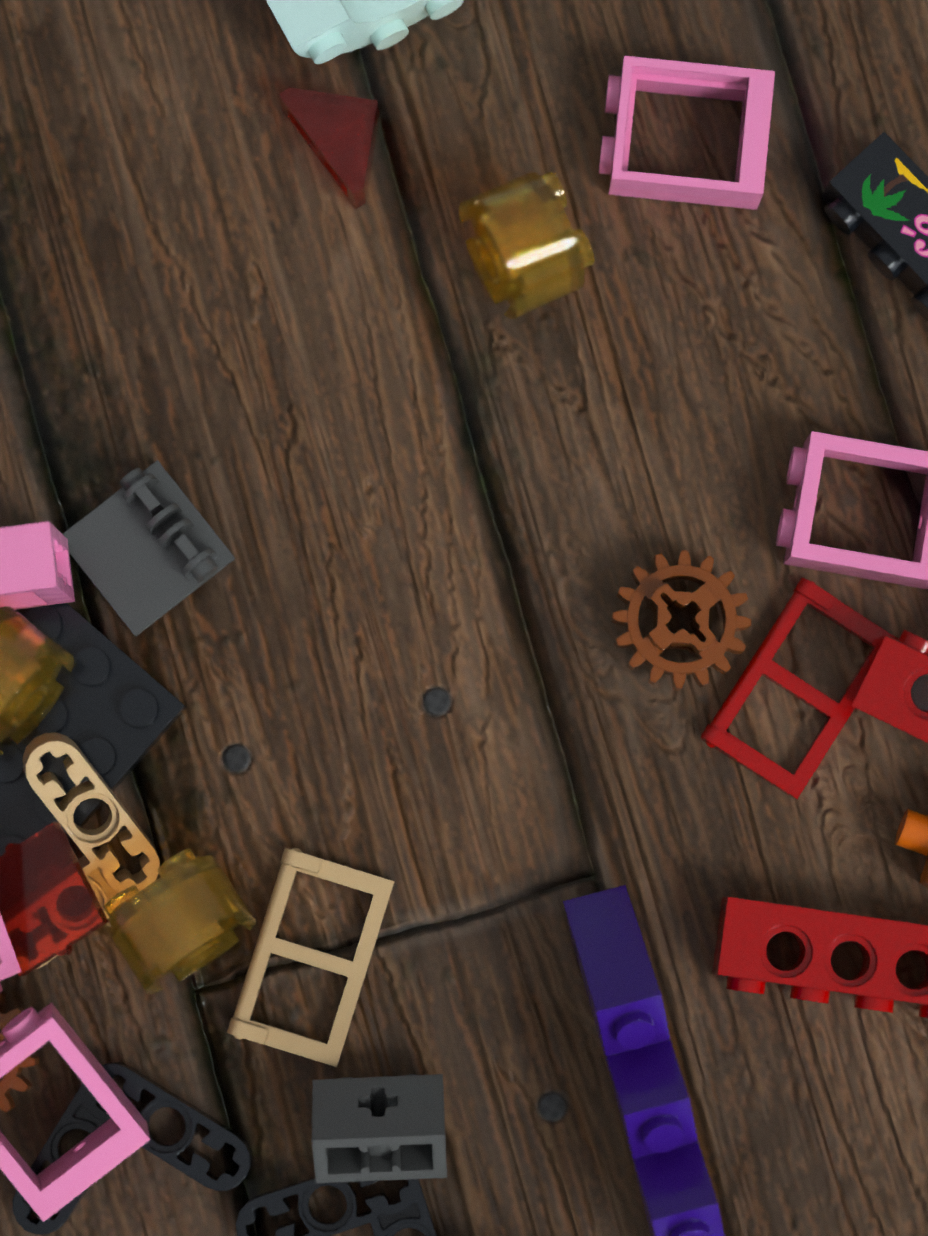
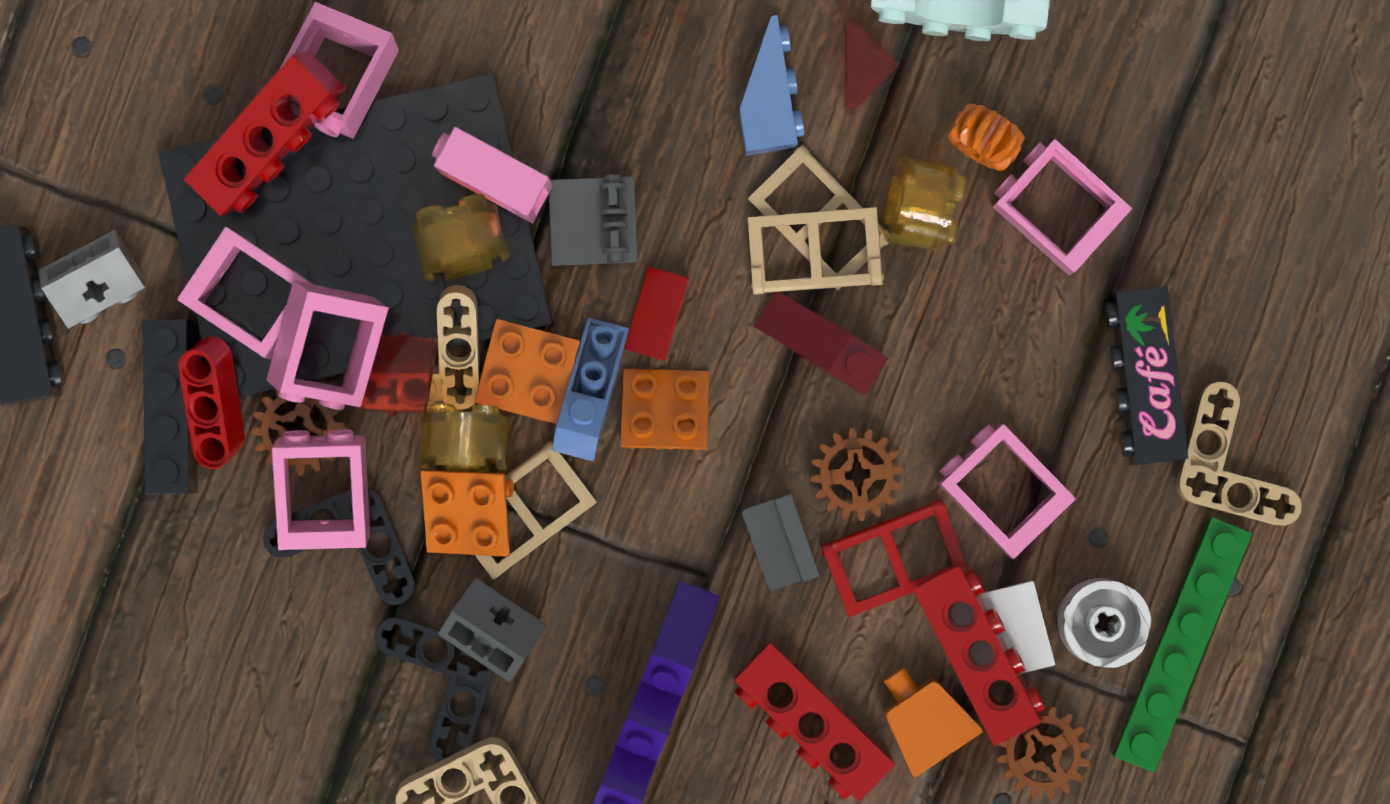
camera: 35 degrees right, 5 degrees up
(195, 782) = (527, 371): none -> orange hinge
(243, 1007) = (466, 512): none -> orange hinge
(257, 264) = (766, 108): none -> medium blue slope
(288, 752) = (590, 389): none -> medium blue slope
(302, 603) = (656, 313): none -> red slope
(395, 709) = (665, 409): none -> orange hinge
(407, 356) = (817, 281): none -> tan window
(422, 307) = (800, 156): none -> tan window
(526, 495) = (821, 343): none -> dark red slope
(541, 112) = (986, 137): none -> orange gear
(650, 768) = (780, 542): none -> dark grey panel

